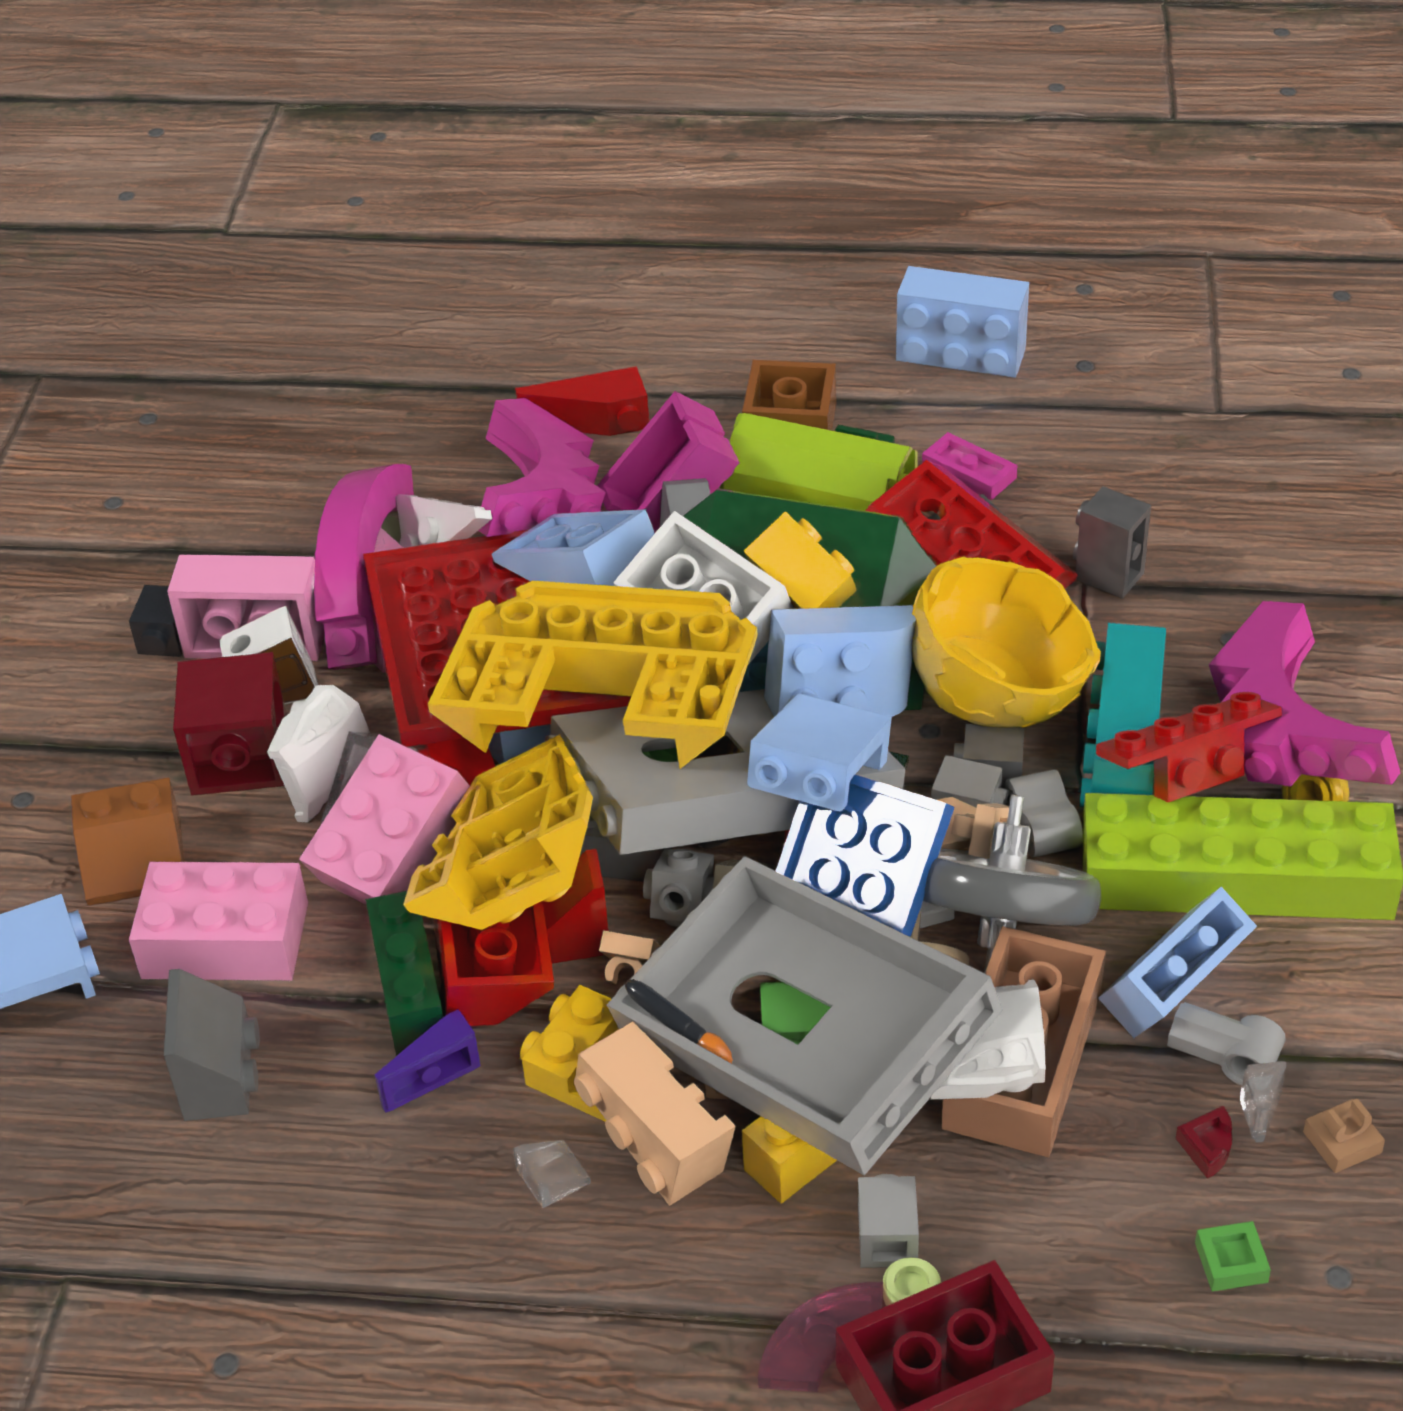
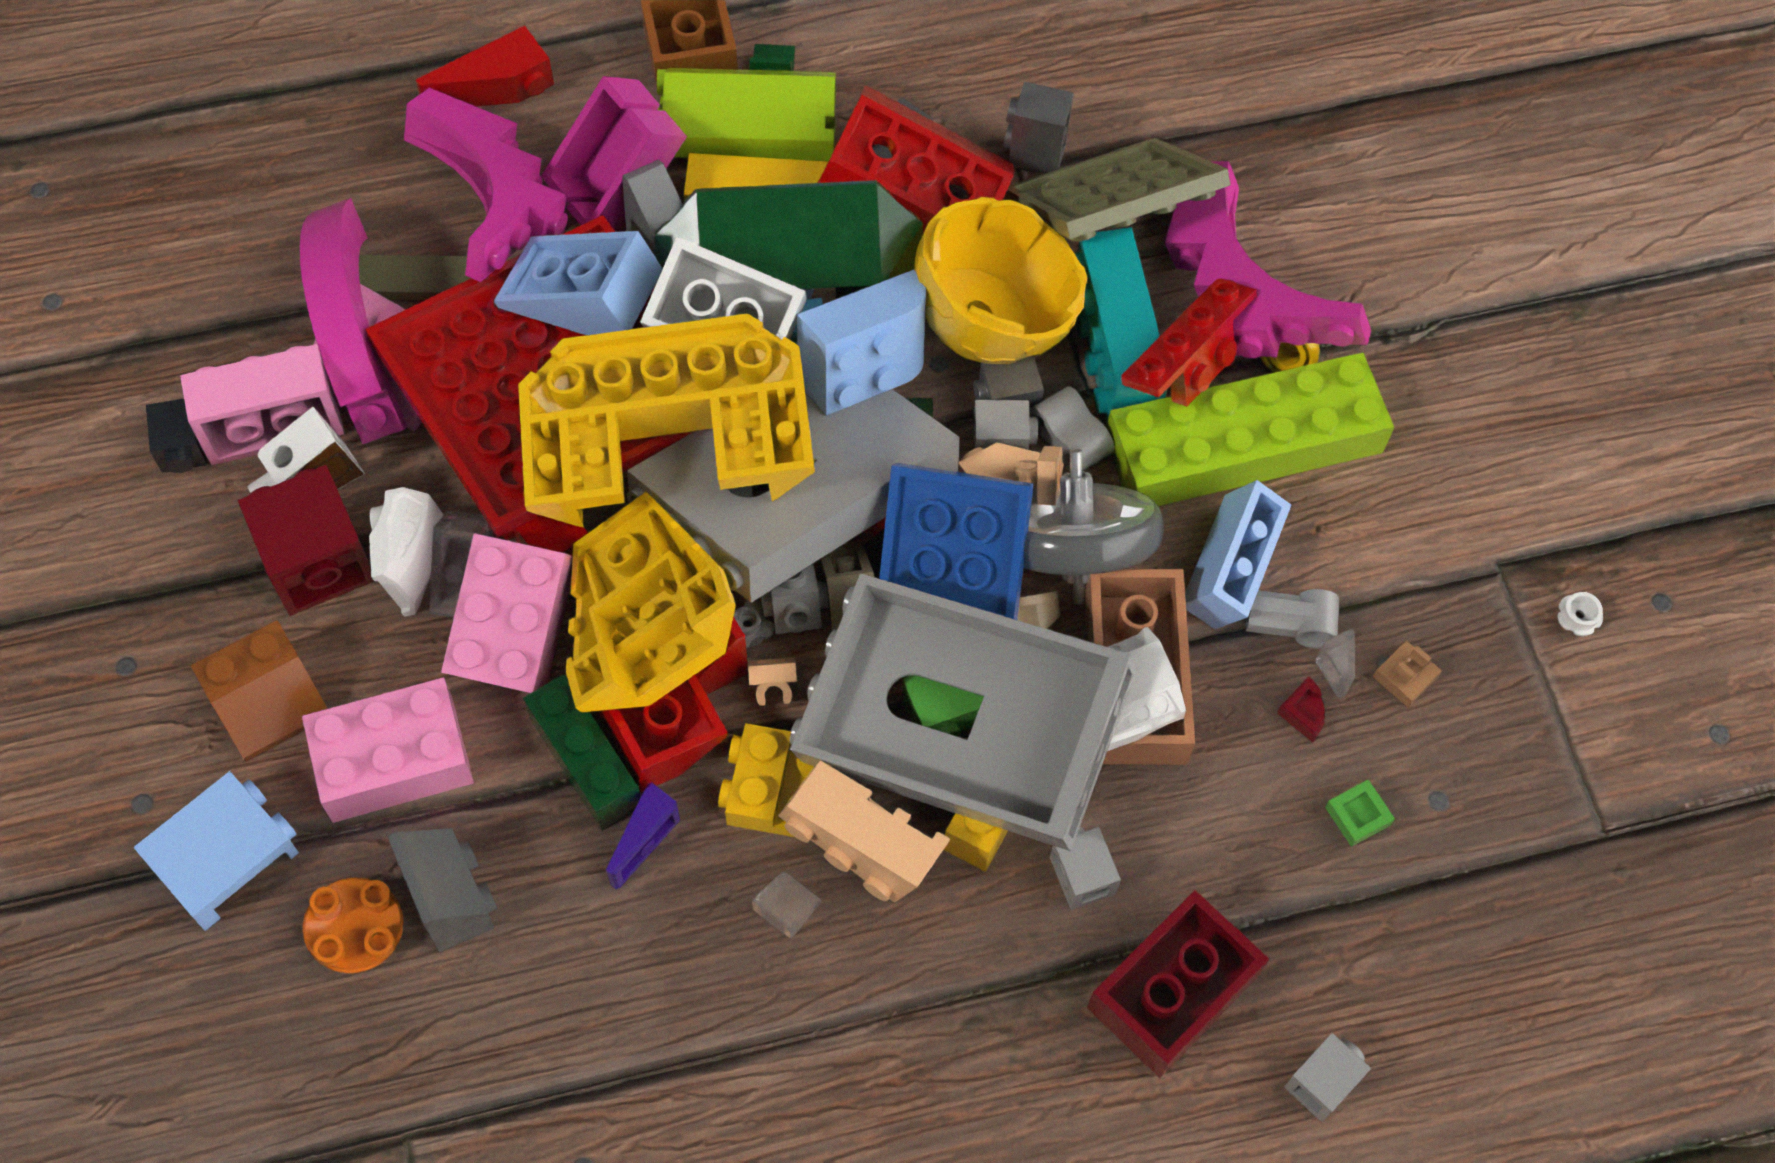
camera: 25 degrees left, 20 degrees up
(111, 1066) = (352, 924): none -> orange dish
(436, 520) = (414, 272): white wing -> none
(626, 907) = (760, 627): none -> light grey plate
(676, 1019) = (889, 760): black piece -> none
(797, 560) = (804, 258): yellow brick -> none
(807, 1337) = (1063, 982): clear pink tile -> none
(816, 750) = (890, 452): light blue panel -> none
(908, 1278) = (1120, 918): yellowish green tile -> none
(972, 465) = (875, 64): dark pink plate -> none
(1181, 600) = (1119, 188): none -> olive plate

